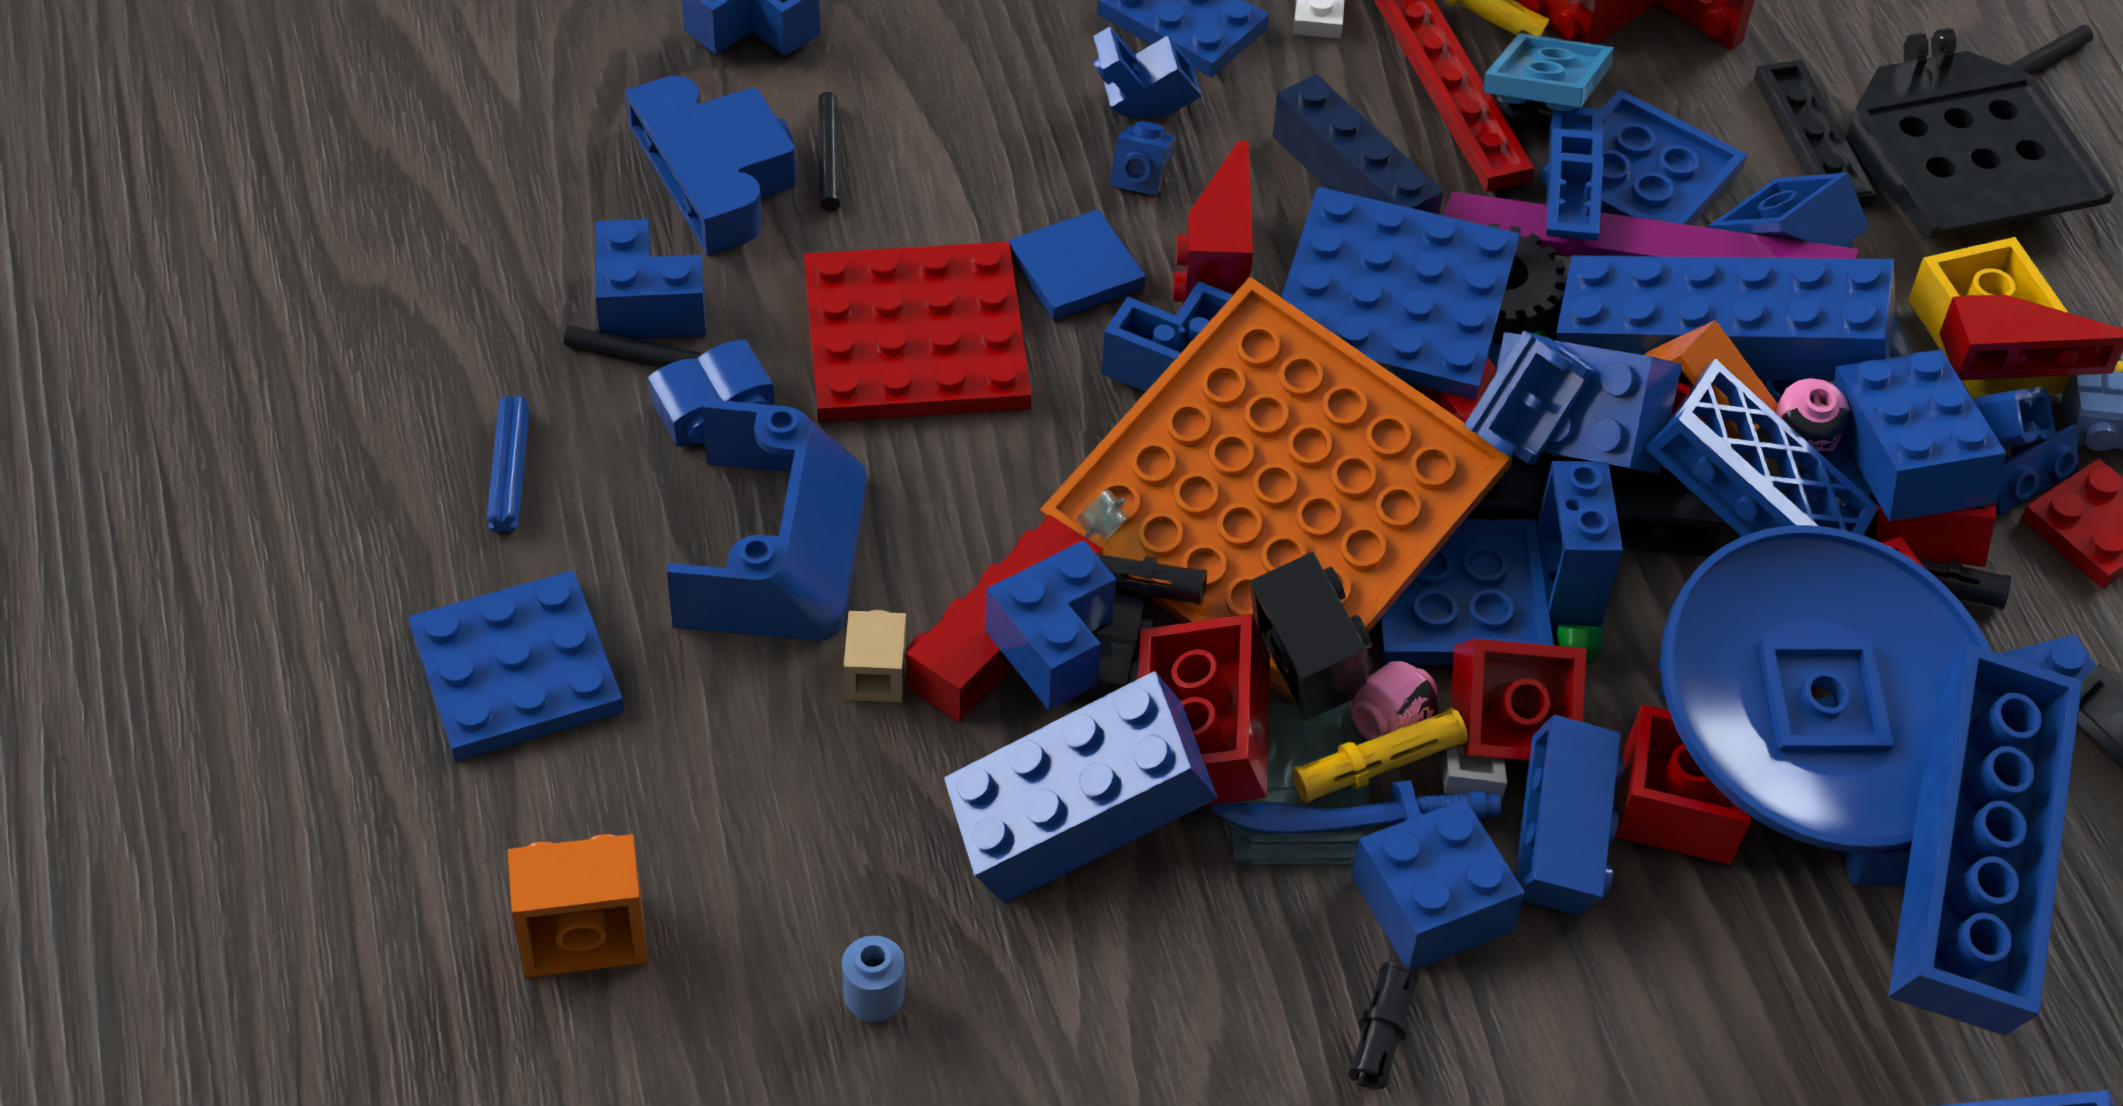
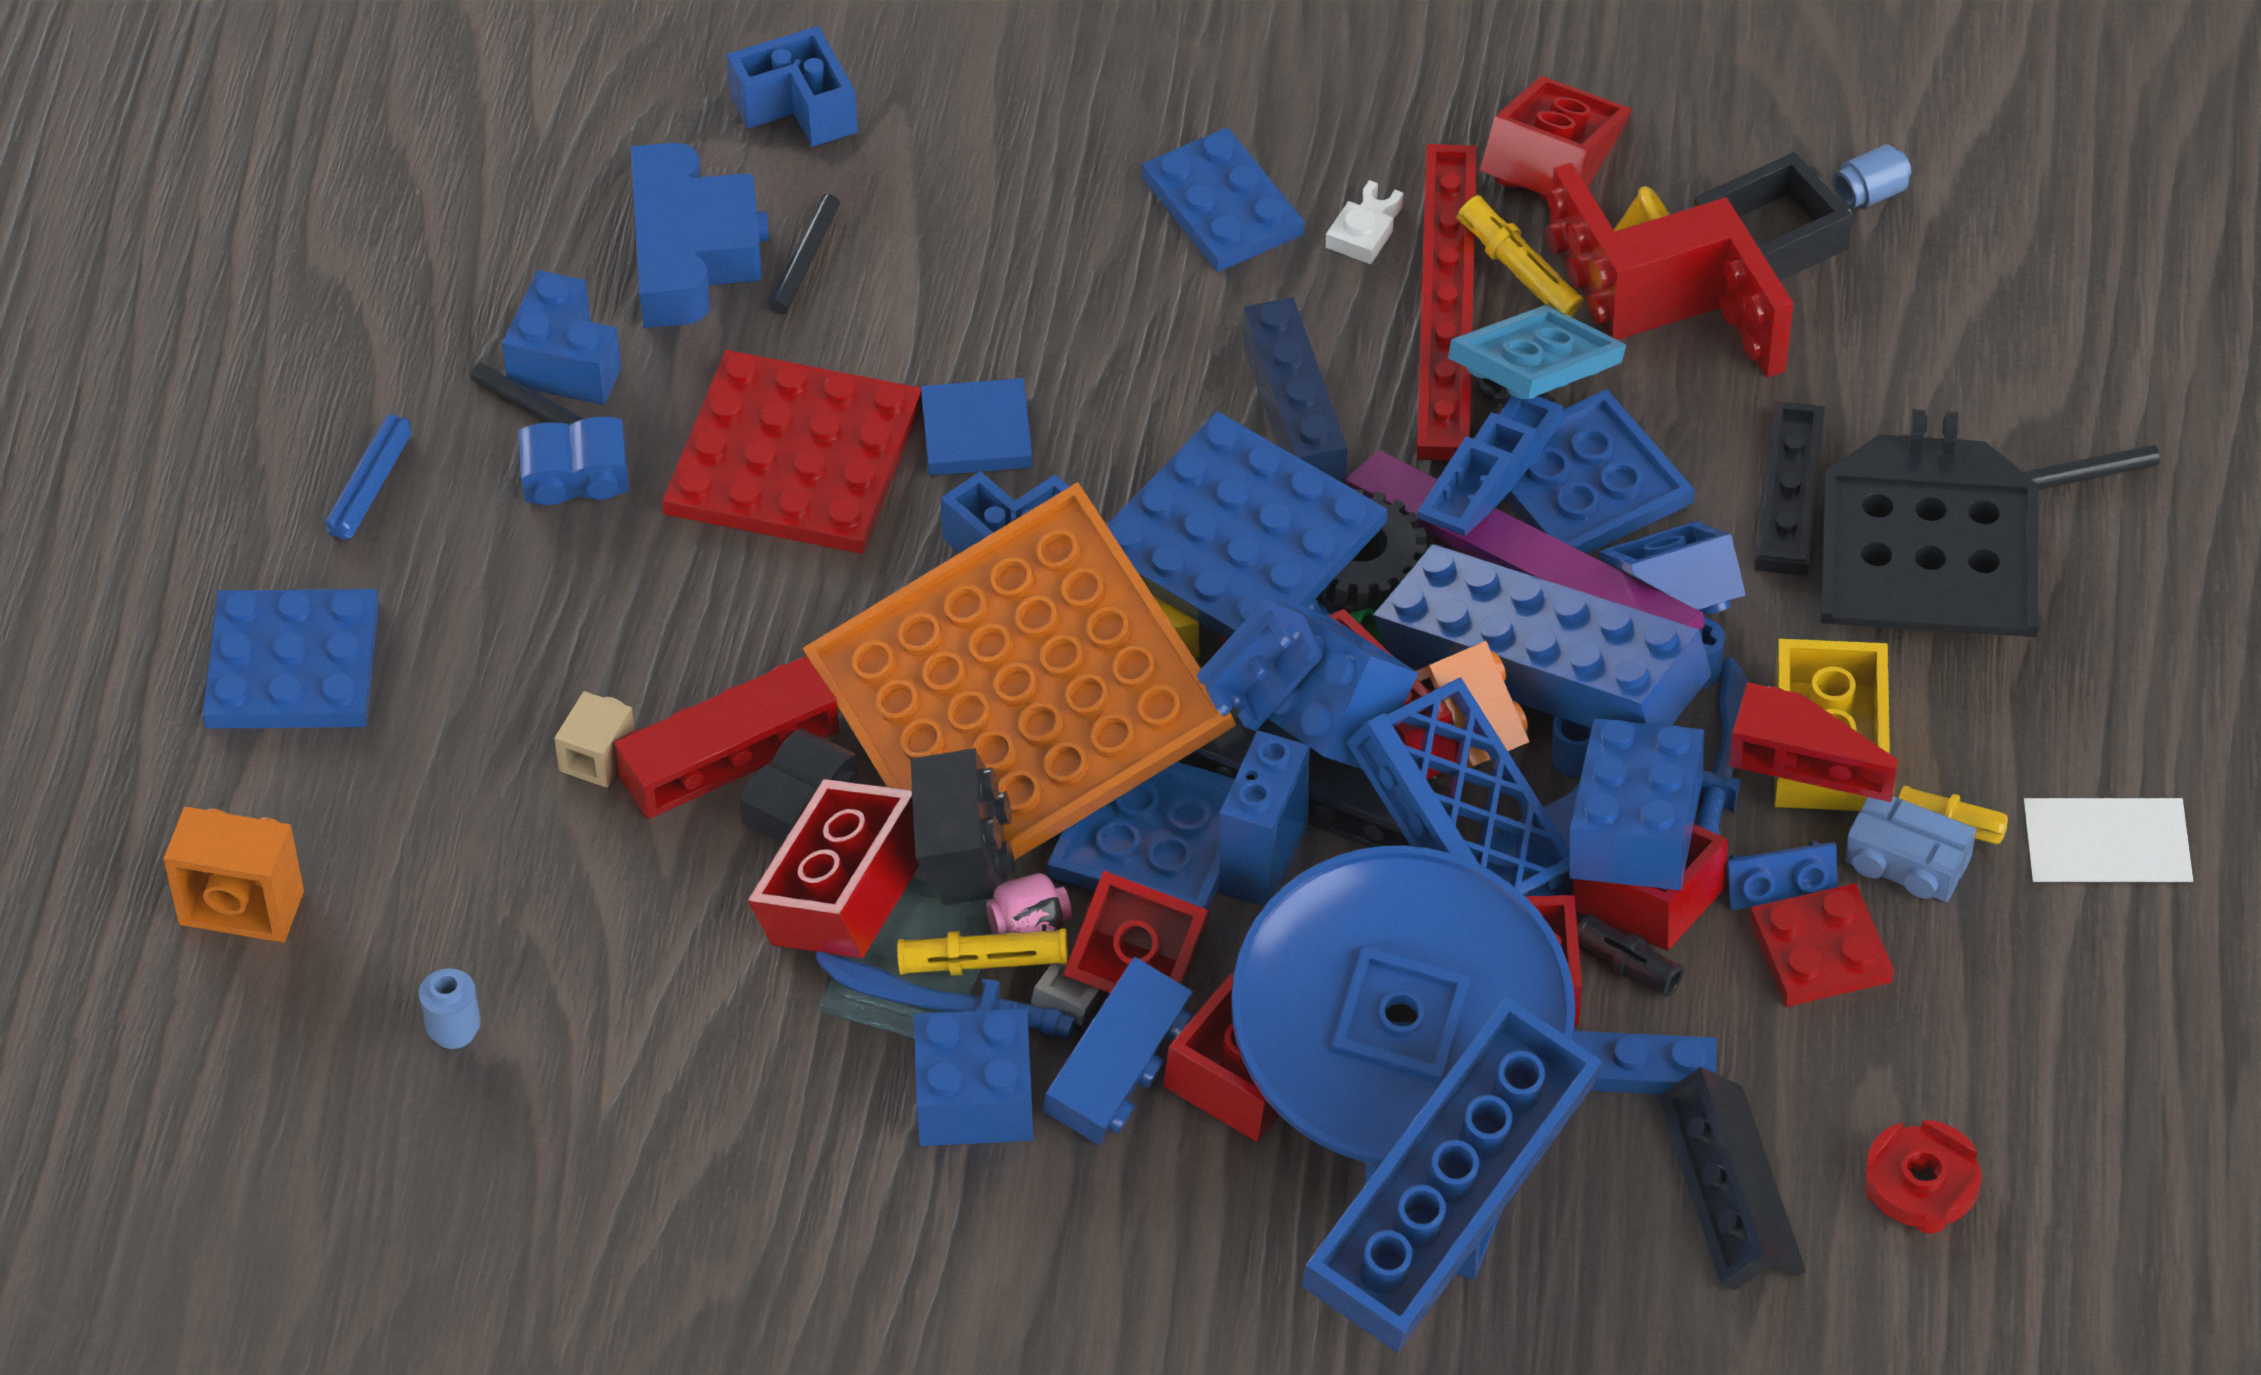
camera: 25 degrees right, 0 degrees up
(790, 581) = (591, 618): blue windscreen -> none
(1047, 621) = (738, 741): blue brick -> none
(1079, 788) = (691, 898): brick -> none
(1103, 515) = (846, 668): clear light blue plate -> none
(1141, 157) = (1092, 333): blue bracket -> none
(1146, 82) = (1139, 262): blue brick -> none
(1186, 585) = (860, 737): black pin -> none
(1218, 231) = (1110, 432): red slope -> none
(1383, 1025) = (864, 1178): black pin -> none
(1581, 637) = (1236, 909): green hinge -> none
(1815, 412) = (1552, 760): bright pink head -> none
(2018, 415) = (1761, 816): blue brick -> none

